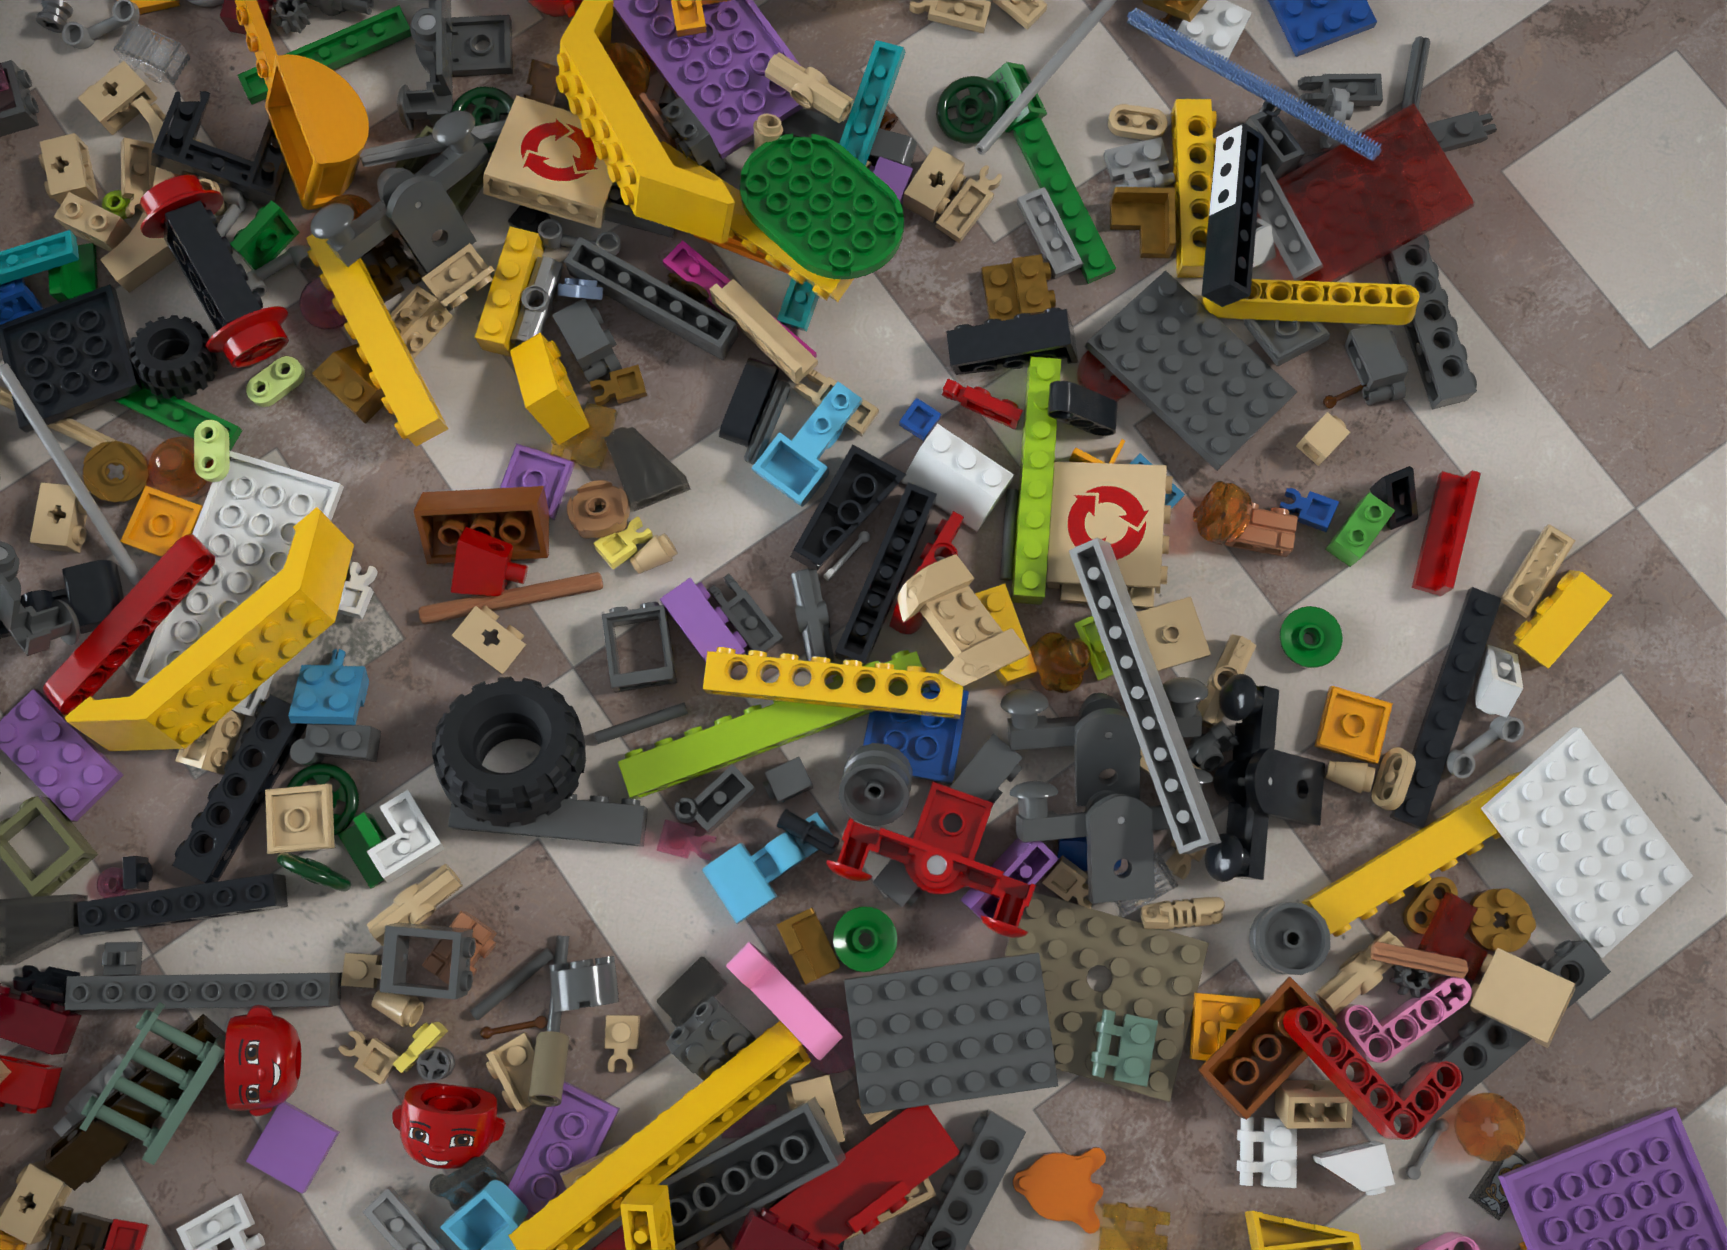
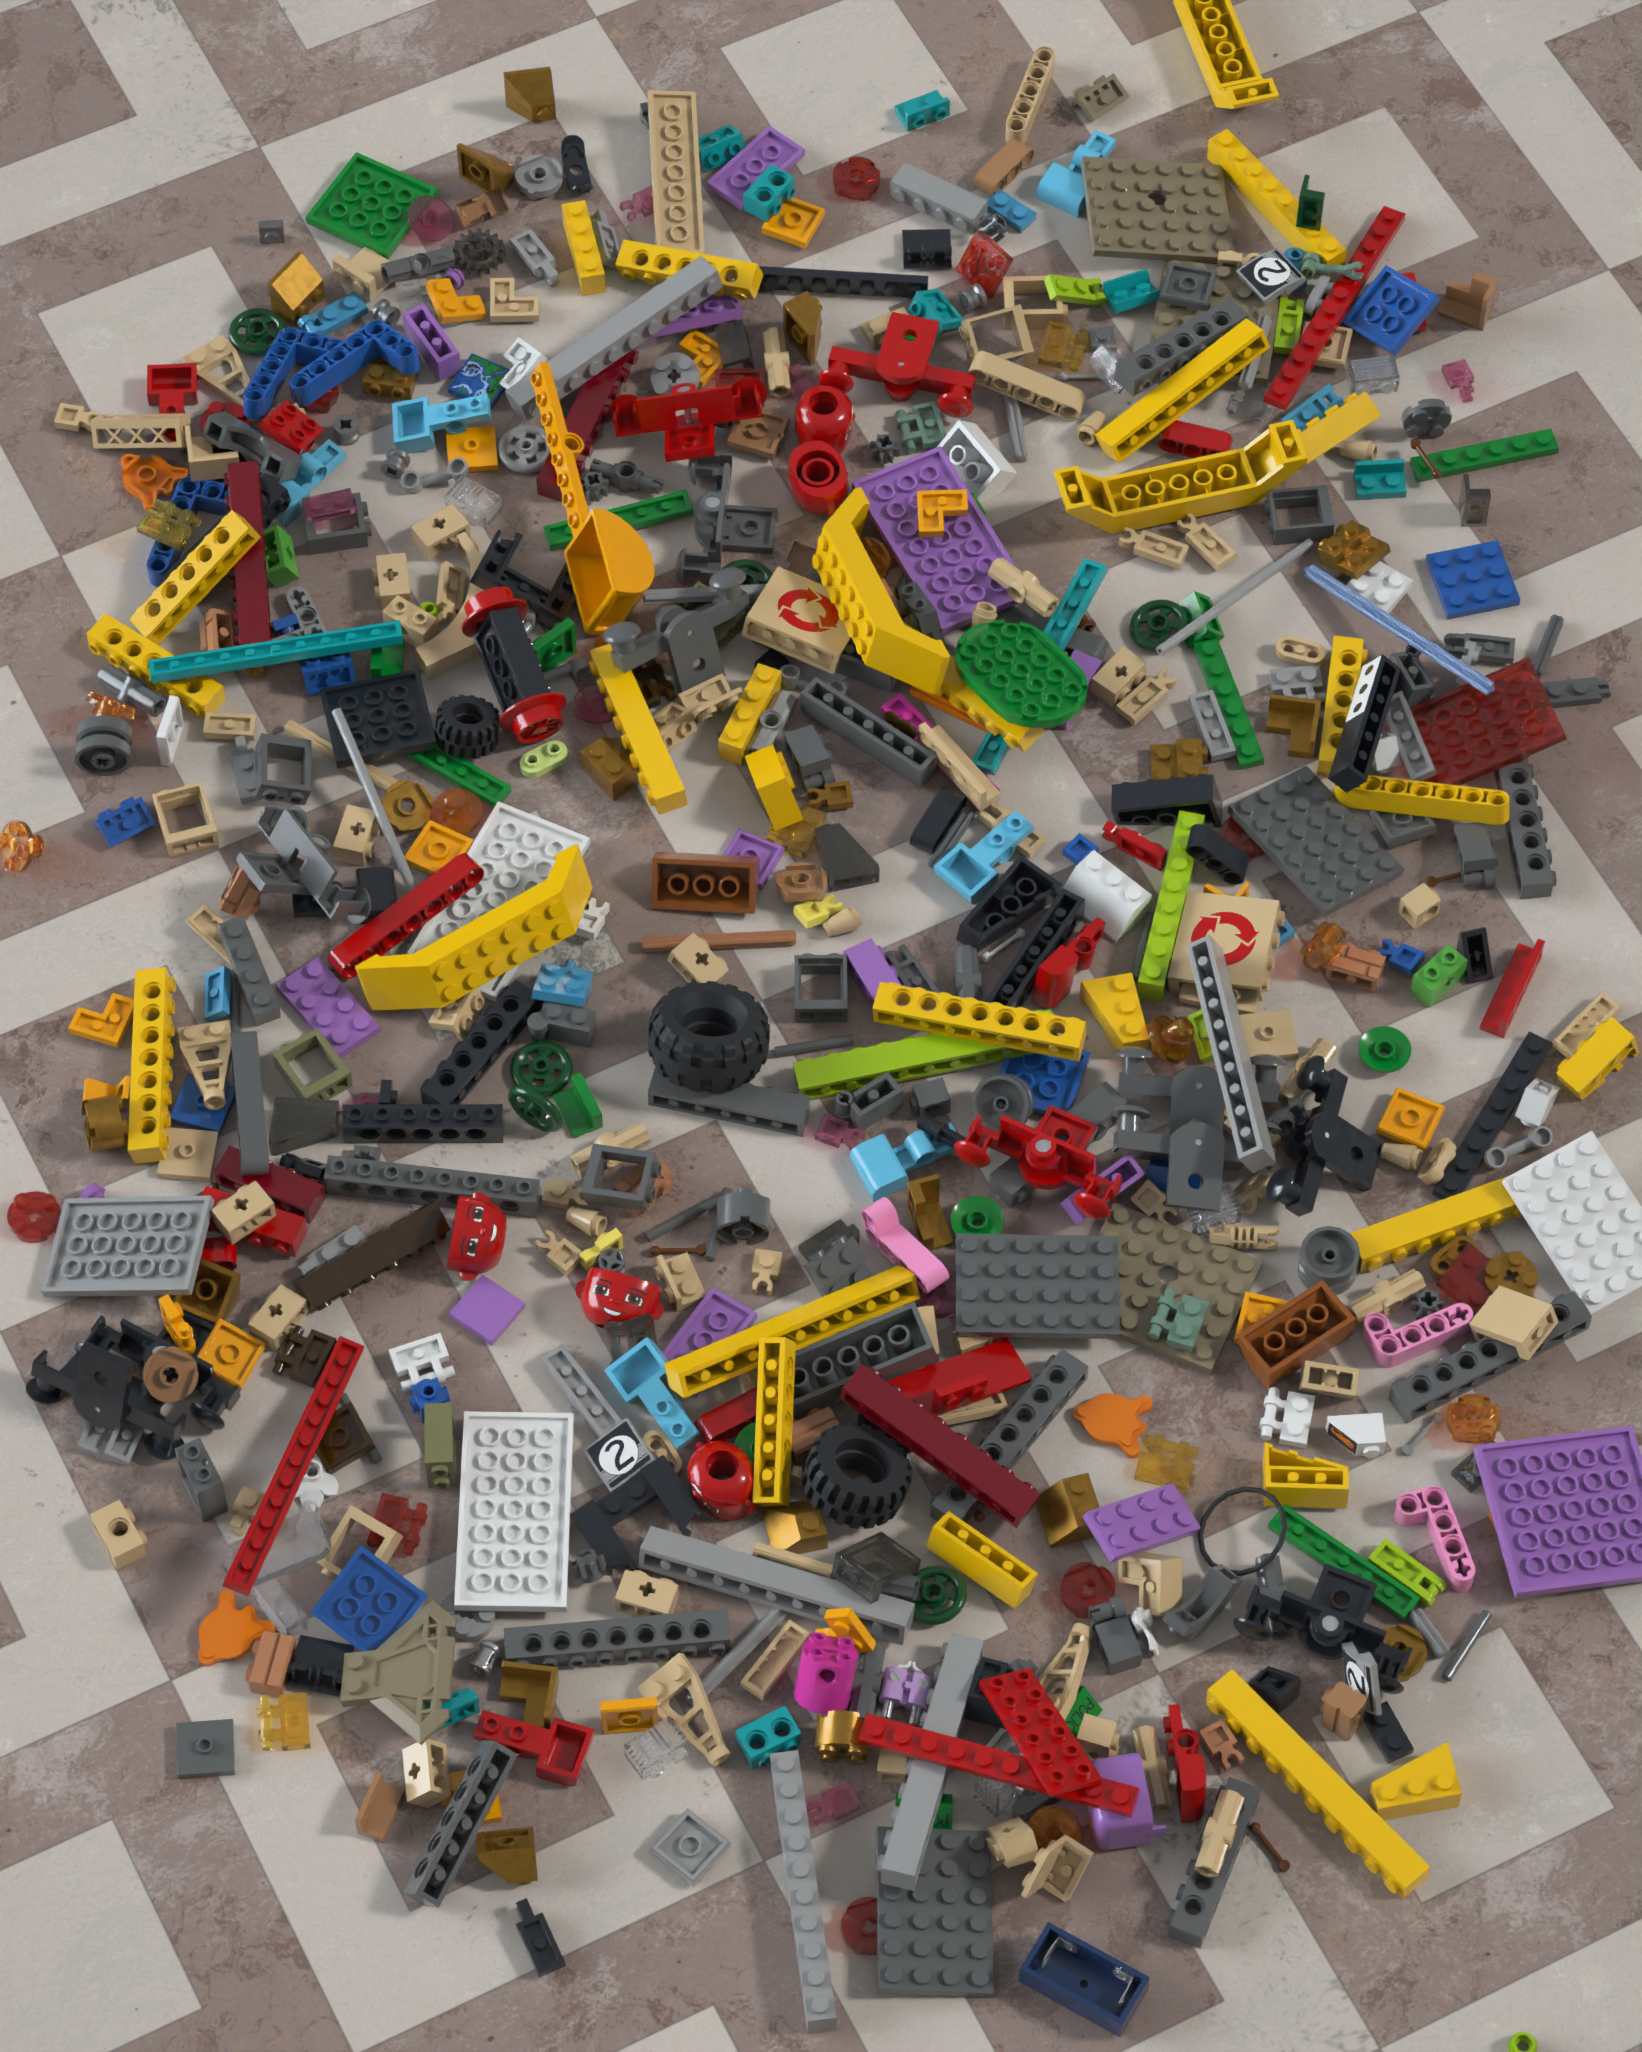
camera: 10 degrees right, 20 degrees down
(172, 1109) = (402, 1257): sand green fence -> none
(213, 448) = (488, 797): yellowish green plate -> none
(299, 819) = (526, 1068): tan plate -> none
(411, 843) = (615, 1102): white panel -> none
(484, 565) = (702, 909): red torso -> none
(548, 1069) = (705, 1273): dark tan pin -> none
(580, 289) = (805, 717): sand blue plate -> none
(960, 621) = (1081, 971): tan piece -> none
(1367, 1079) = (1370, 1352): red beam -> none
(1419, 959) = (1432, 1285): nougat axle -> none

